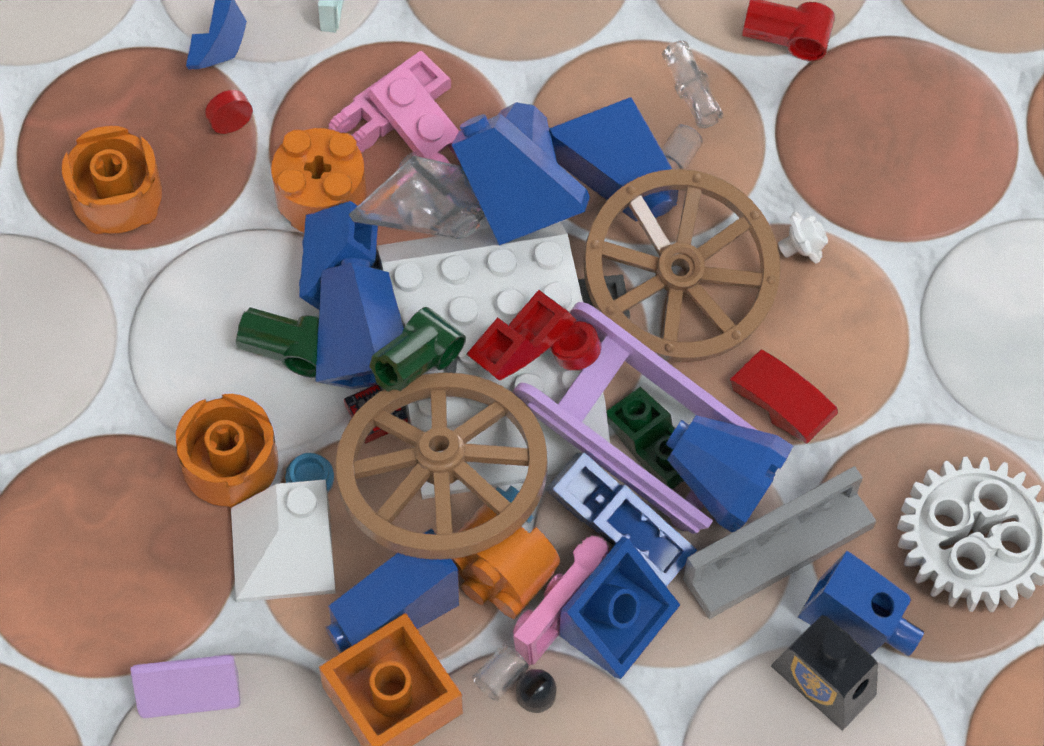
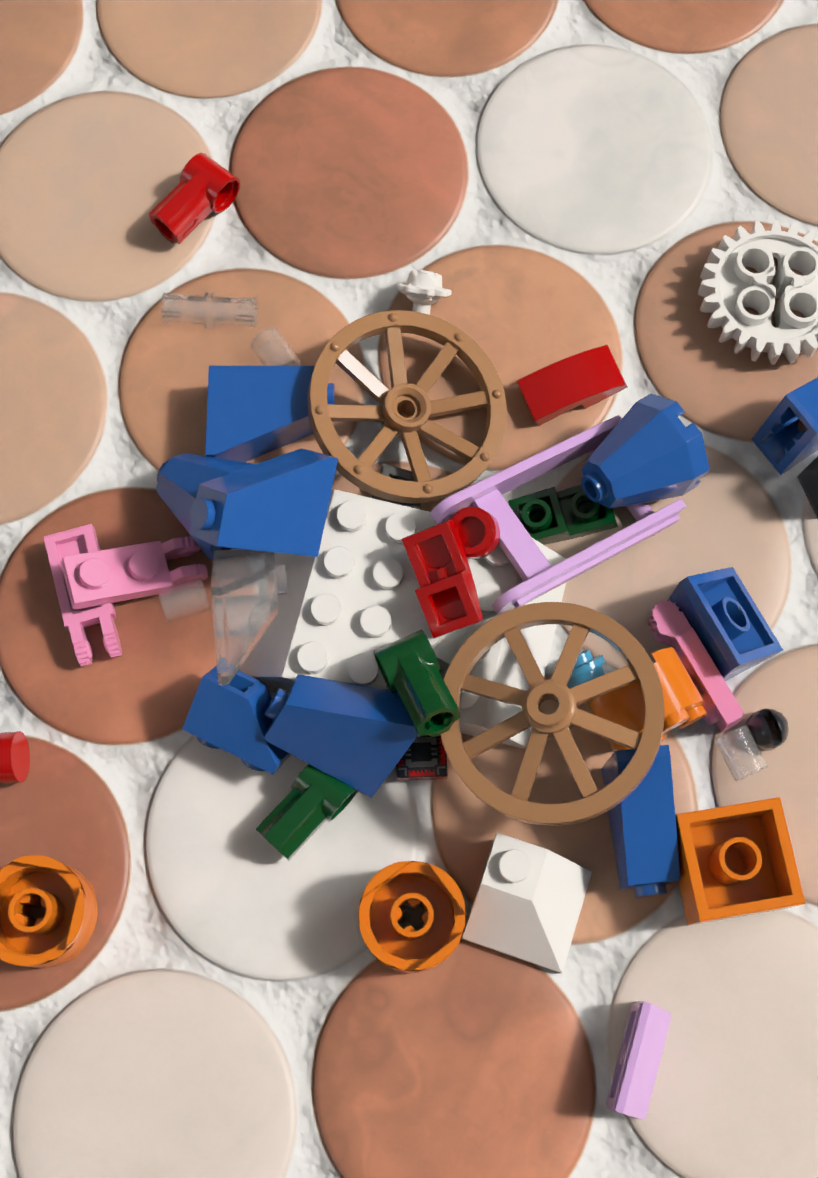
camera: 65 degrees left, 10 degrees up
(310, 468) = (464, 846): dark azure plate -> none
(316, 172) = (136, 672): orange brick -> none
(617, 513) = (640, 575): slope -> none
(778, 544) = (723, 491): light grey fence -> none

